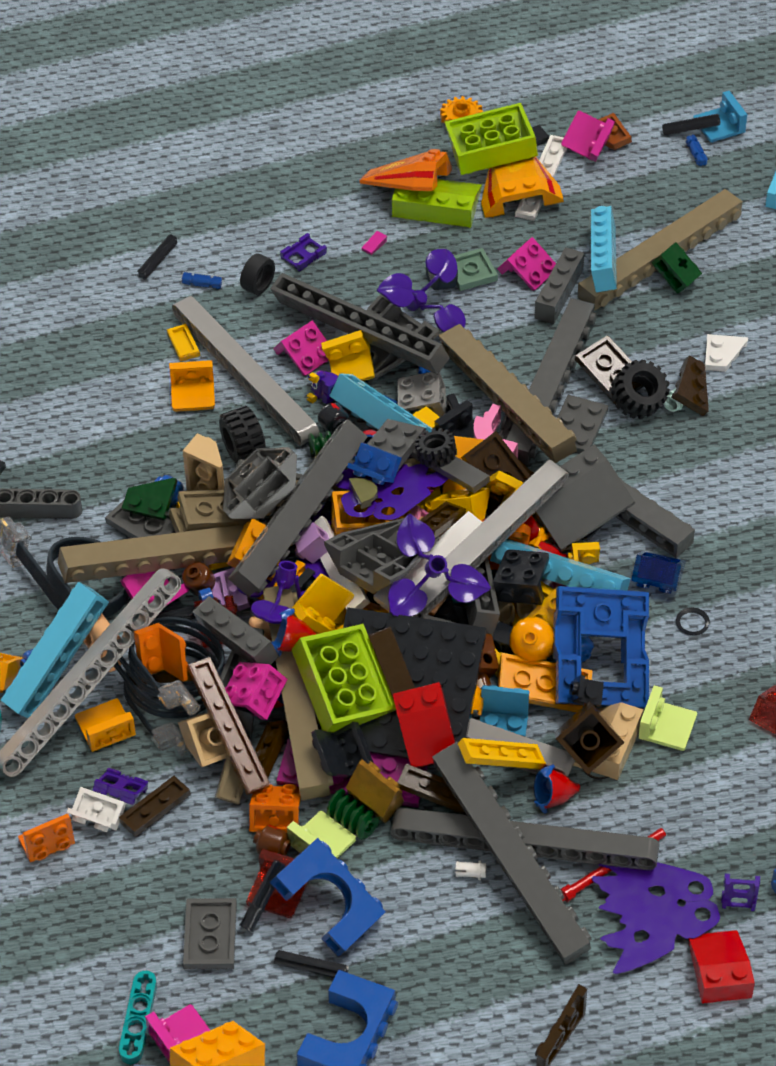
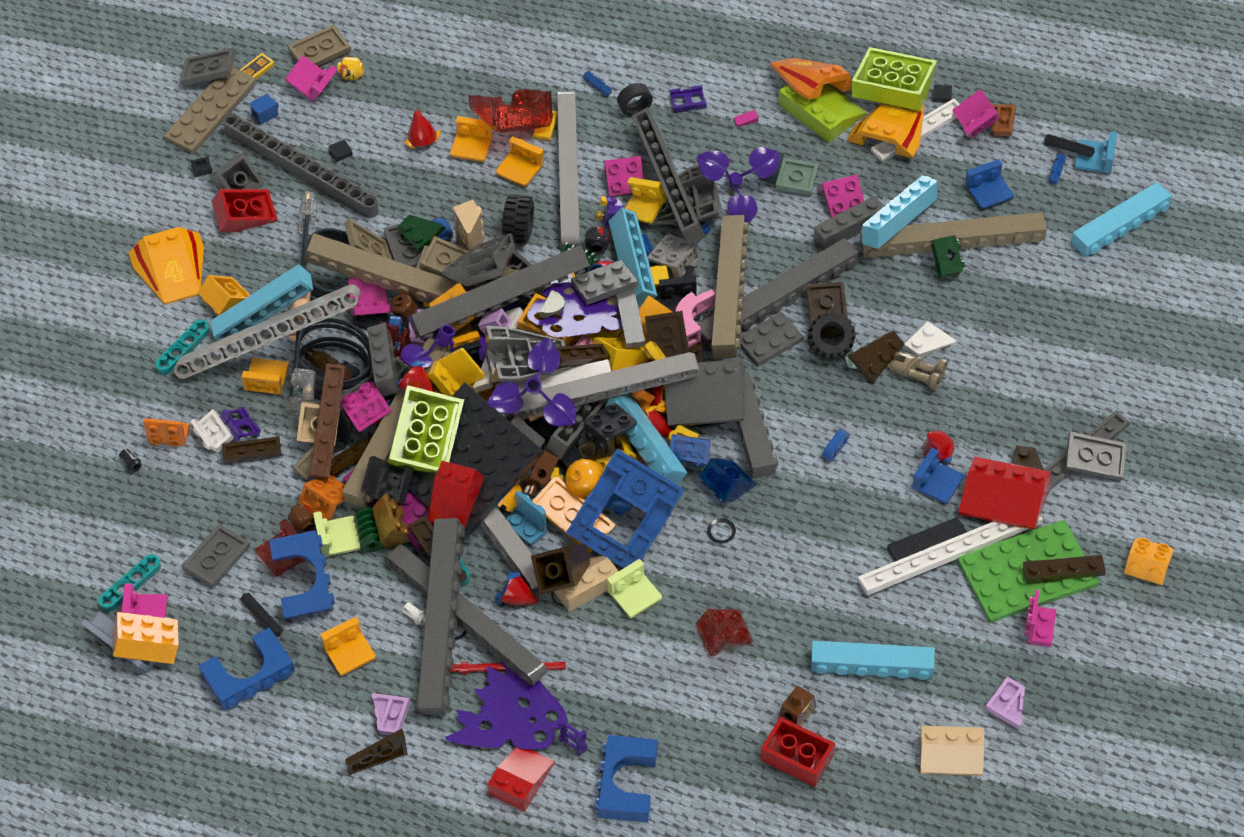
camera: 35 degrees right, 5 degrees up
(29, 890) = (133, 463): none -> black pin
(65, 407) = (421, 132): none -> red hat
(99, 531) = (366, 240): none -> dark tan plate
(122, 389) = (472, 139): none -> light orange bracket
(149, 337) = (528, 110): none -> clear red windscreen
(157, 256) = (582, 48): black axle -> none
(161, 650) = (318, 342): orange bracket -> none
(261, 898) = (259, 553): black axle -> none
(375, 463) = (576, 289): blue bracket -> none
(391, 661) = (463, 438): dark brown tile -> none
(433, 943) = (347, 646): none -> light orange bracket
(435, 448) = (635, 297): black tyre -> none
(459, 108) = (900, 43): light orange gear -> none
(501, 753) = (485, 544): yellow plate -> none
(534, 983) = (390, 712): none -> lavender wing
(586, 690) = (589, 535): black bracket -> none
(612, 555) = (691, 449): none -> blue bracket
(650, 193) = (988, 185): none -> blue bracket
(726, 380) = (907, 366): none -> dark tan piece
(728, 485) = (835, 445): none -> blue beam

